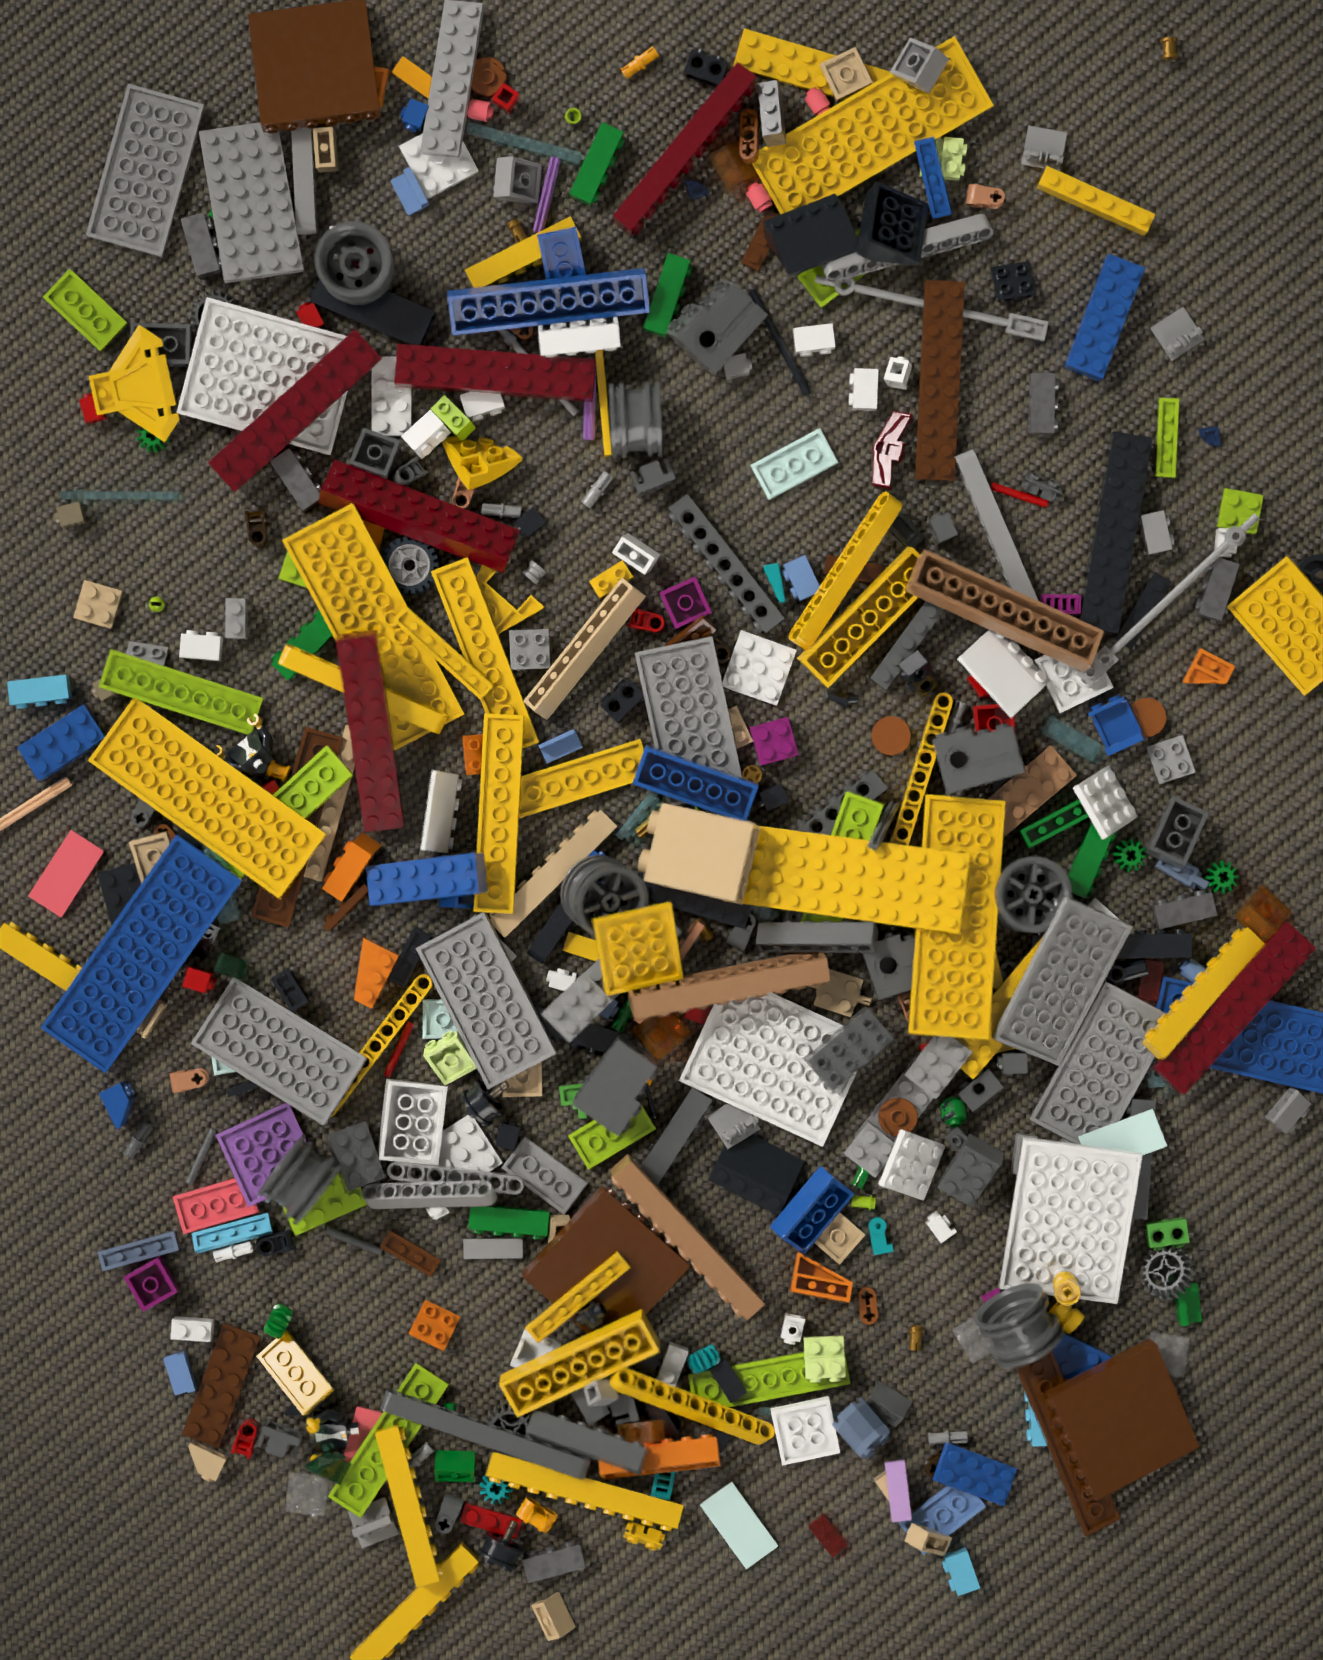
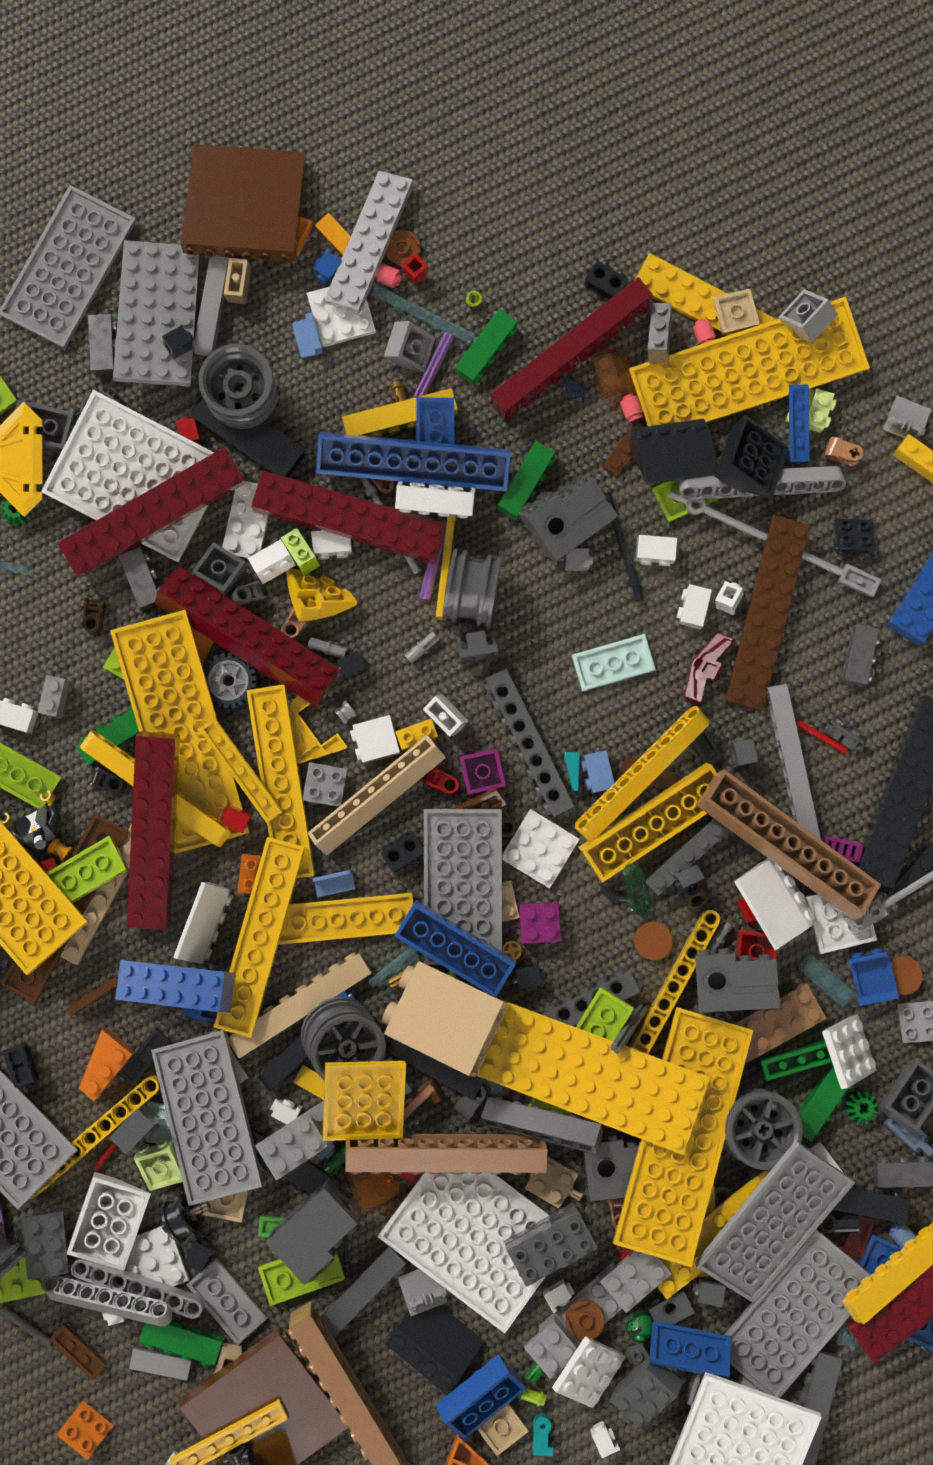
camera: 10 degrees right, 5 degrees down
(282, 229) = (178, 342): none -> black brick
(306, 692) = (104, 780): none -> black piece
(350, 866) = (107, 956): orange wedge -> none
(419, 1026) = (131, 1133): none -> dark grey brick
(448, 702) = (235, 818): none -> red brick
(570, 593) = (375, 739): none -> white brick
(639, 62) = (546, 263): light orange pin -> none
(745, 129) = (636, 357): dark orange beam -> none
(856, 684) = (630, 884): none -> clear green beam
(867, 1099) = (558, 1294): none -> white brick
(1004, 1121) = (690, 1349): none -> blue plate
(1134, 1134) = (813, 1389): light aqua tile -> none

